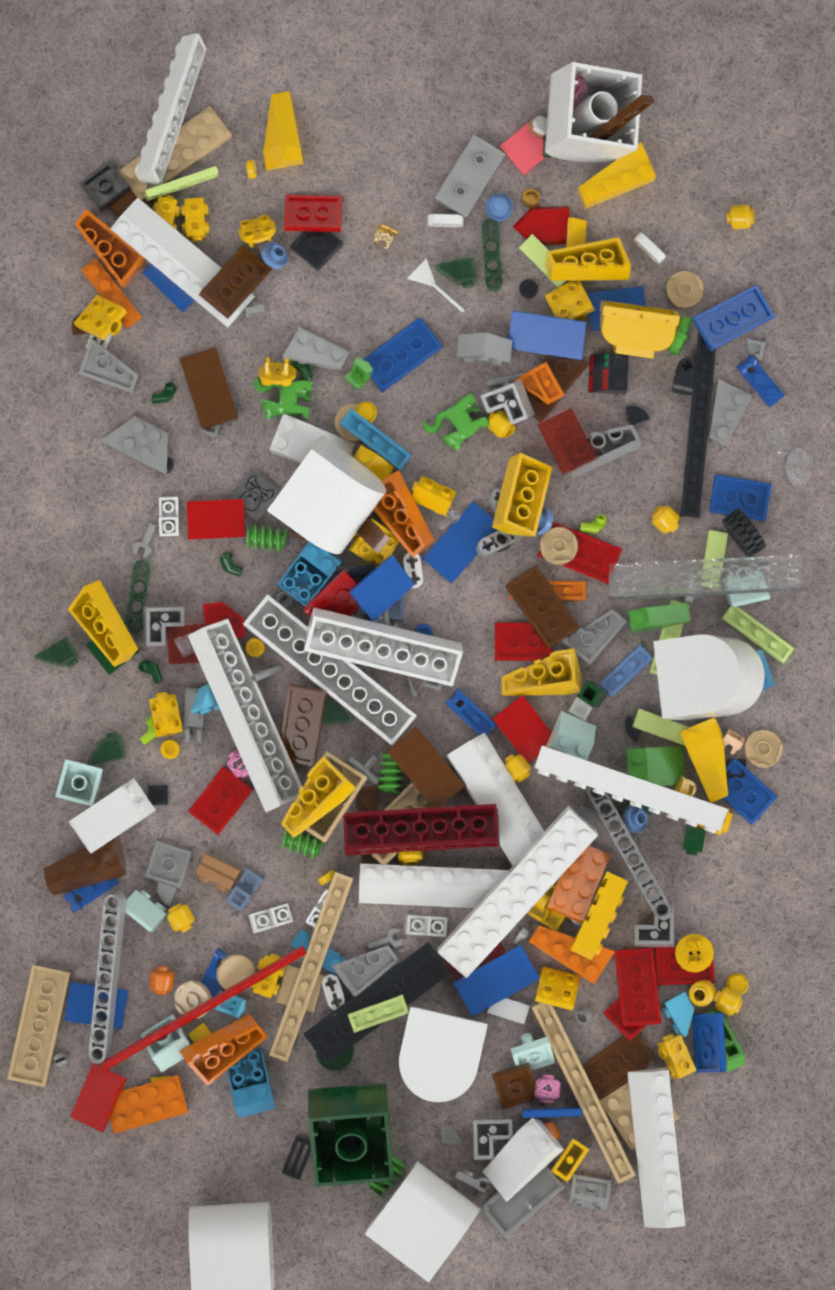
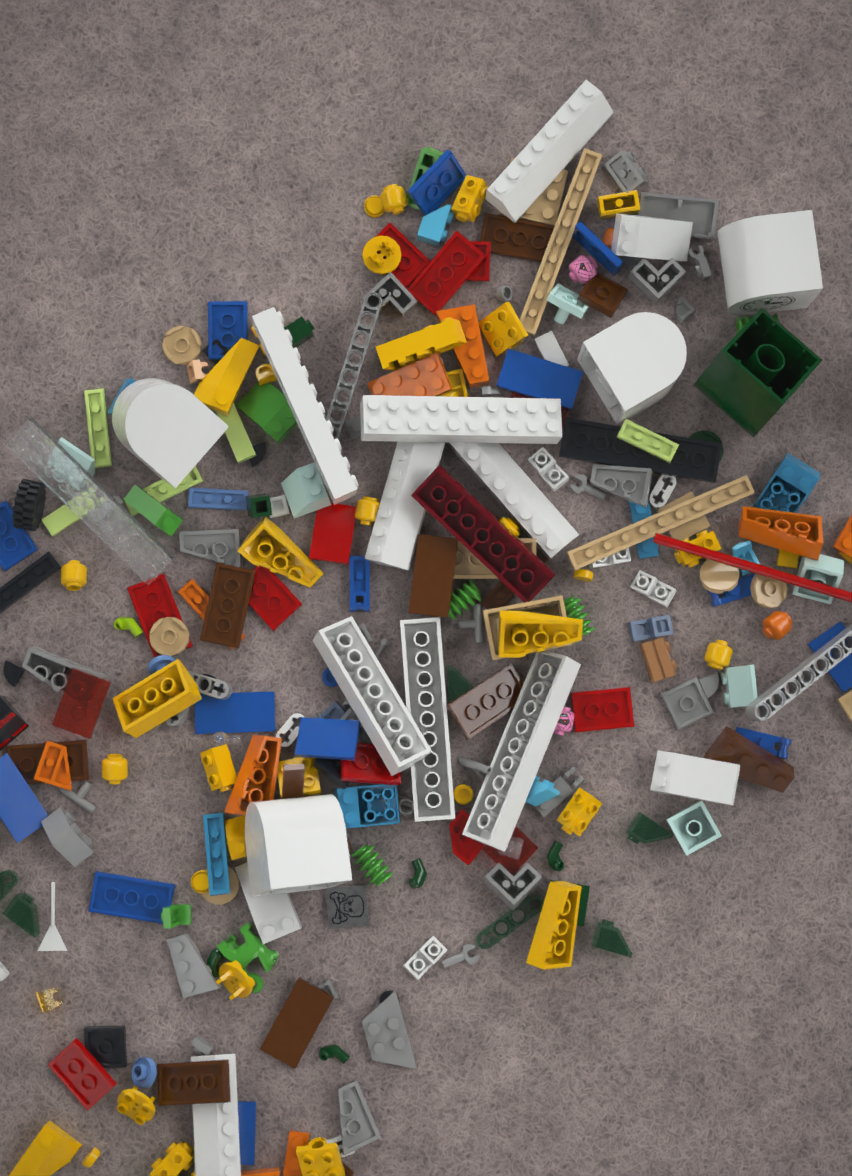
camera: 135 degrees left, 0 degrees up
(150, 734) = (603, 811): lime arm -> none
(158, 794) = (643, 761): black tile -> none
(170, 749) = (600, 785): yellow tile -> none
(216, 519) = (393, 918): red tile -> none
(303, 1142) = (791, 409): black tile -> none
(460, 419) = (141, 801): bright green animal -> none
(512, 398) = (86, 777): light grey brick -> none
(635, 818) = (325, 388): medium blue plate -> none
(702, 998) = (405, 222): yellow head -> none

